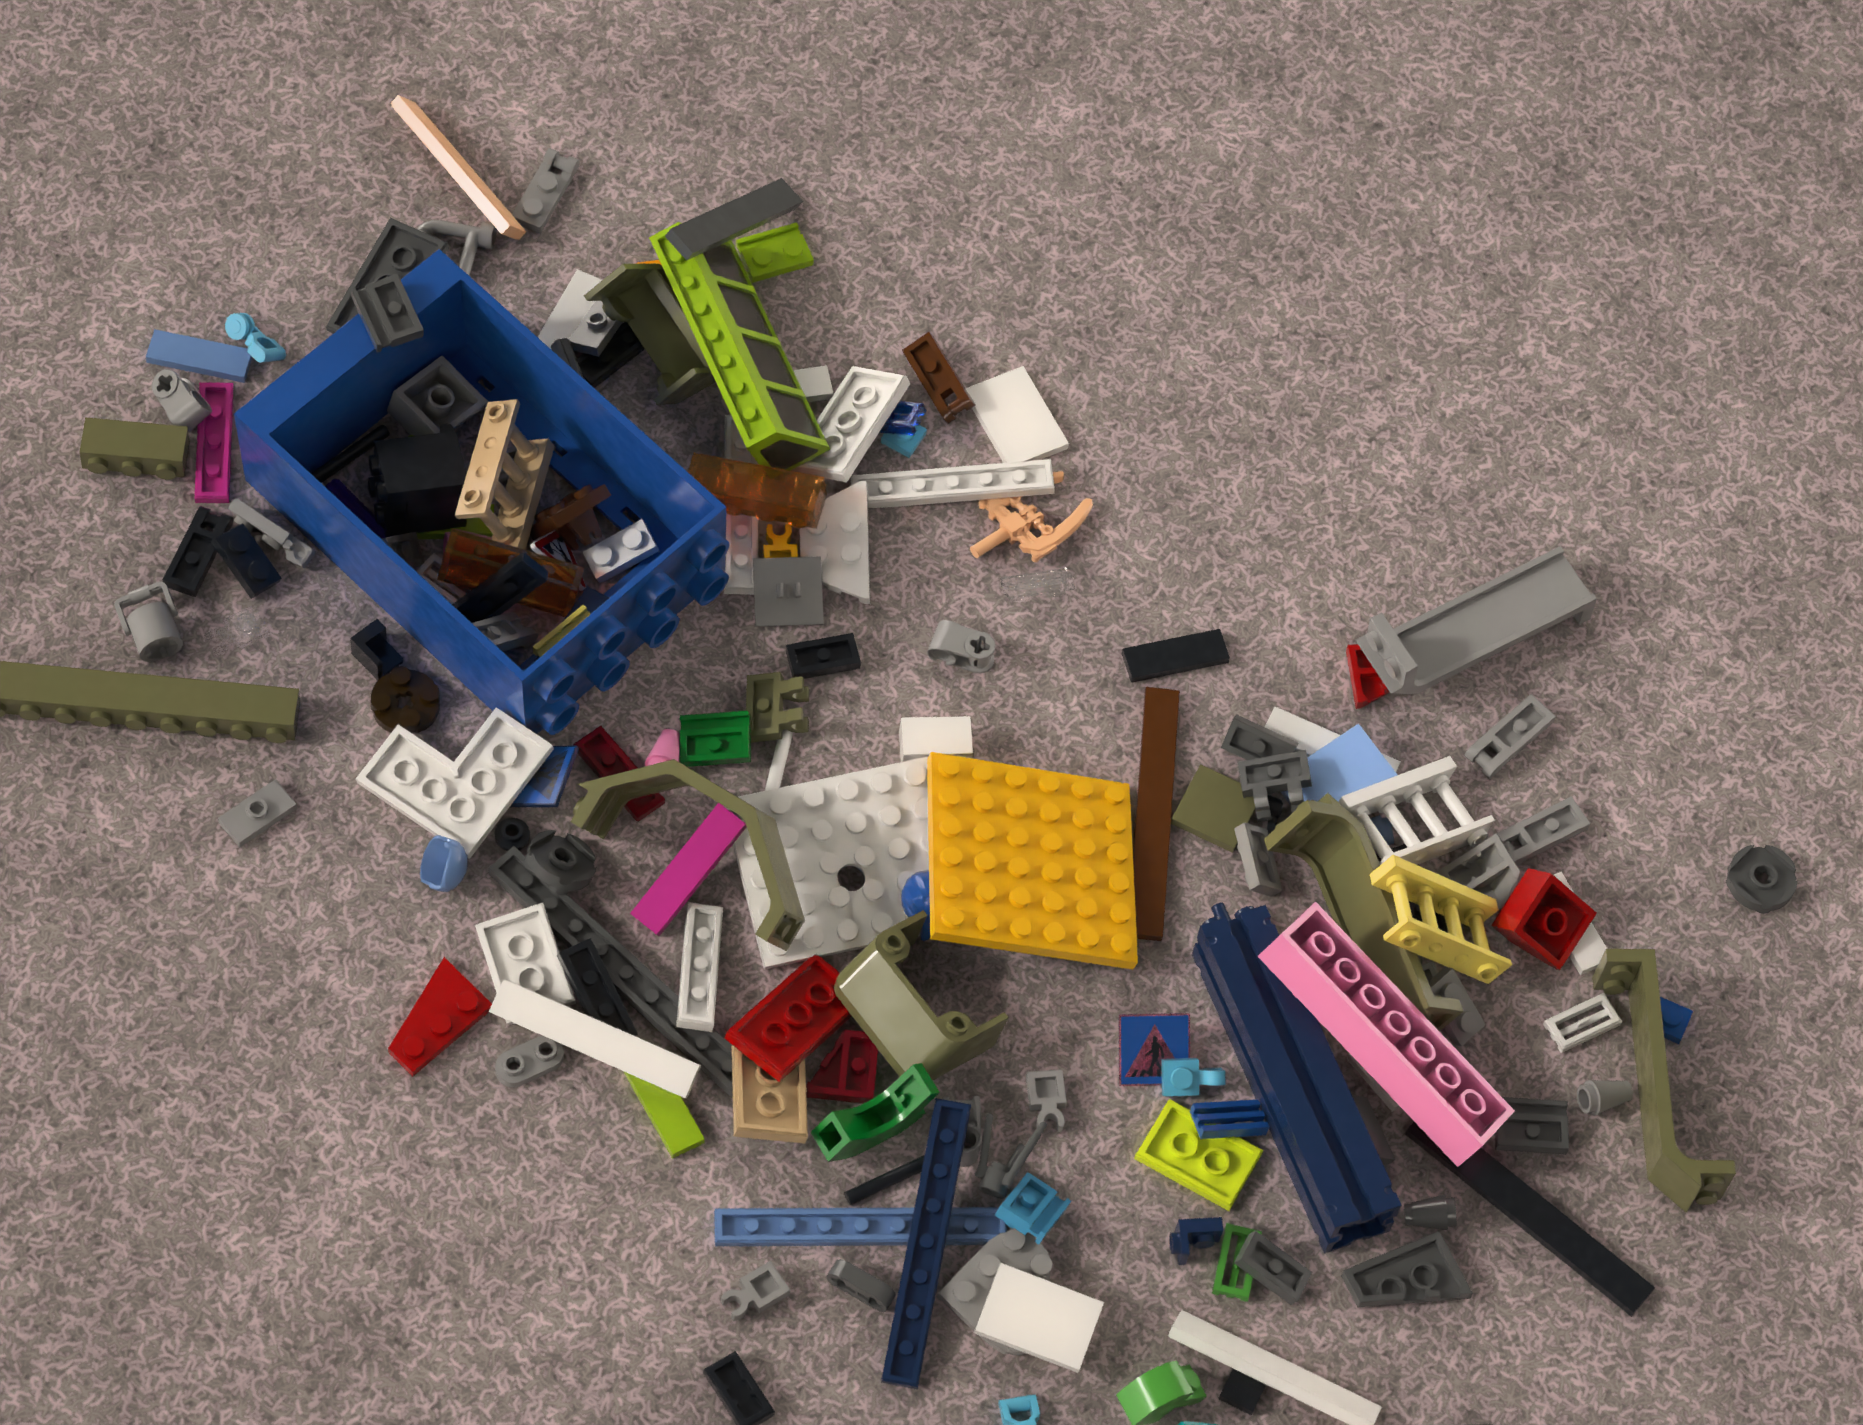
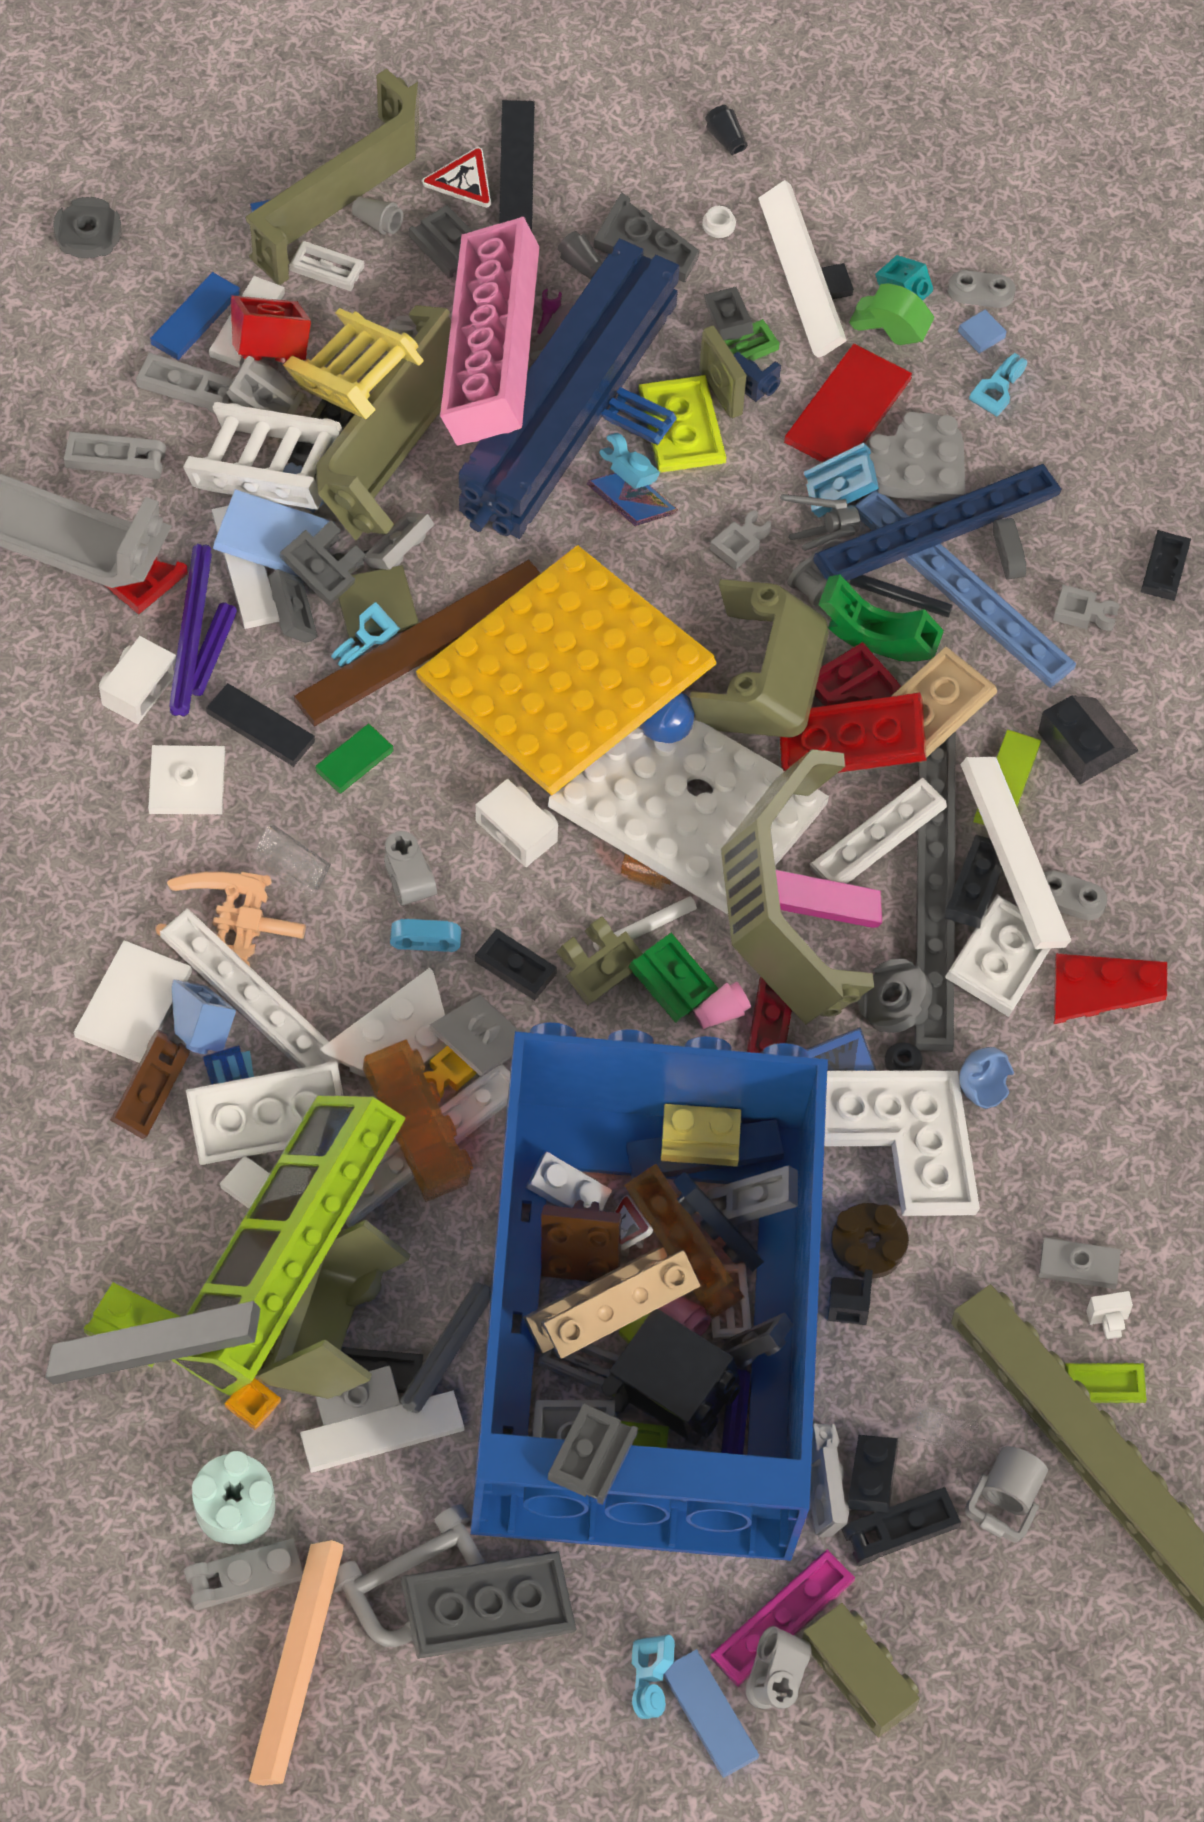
camera: 125 degrees left, 0 degrees up
(162, 757) = (1111, 1381): none -> lime tile
(202, 792) = (1111, 1312): none -> white tile
(595, 209) = (236, 1477): none -> light aqua brick
(644, 1188) = (1084, 736): none -> black slope
(898, 618) = (425, 935): none -> dark azure beam
(963, 436) = (200, 1017): none -> medium blue slope
(1039, 1317) = (921, 416): white tile -> none
(1091, 692) = (354, 758): none -> green tile
(1099, 1264) = (848, 405): none -> red tile
(1169, 577) = (186, 779): none -> white plate
(1189, 769) = (348, 653): none -> medium azure piece
(1211, 1198) = (722, 372): none -> olive tile
(1271, 671) = (212, 646): none -> dark purple axle
(1282, 600) = (137, 679): none -> white brick
(1295, 661) = (190, 630): none -> dark purple axle
(1380, 1352) = (719, 222): none -> white plate
(1398, 1148) = (549, 307): none -> magenta hand
(1587, 1184) = (463, 179): none -> piece
(1607, 891) = (194, 316): none -> blue tile

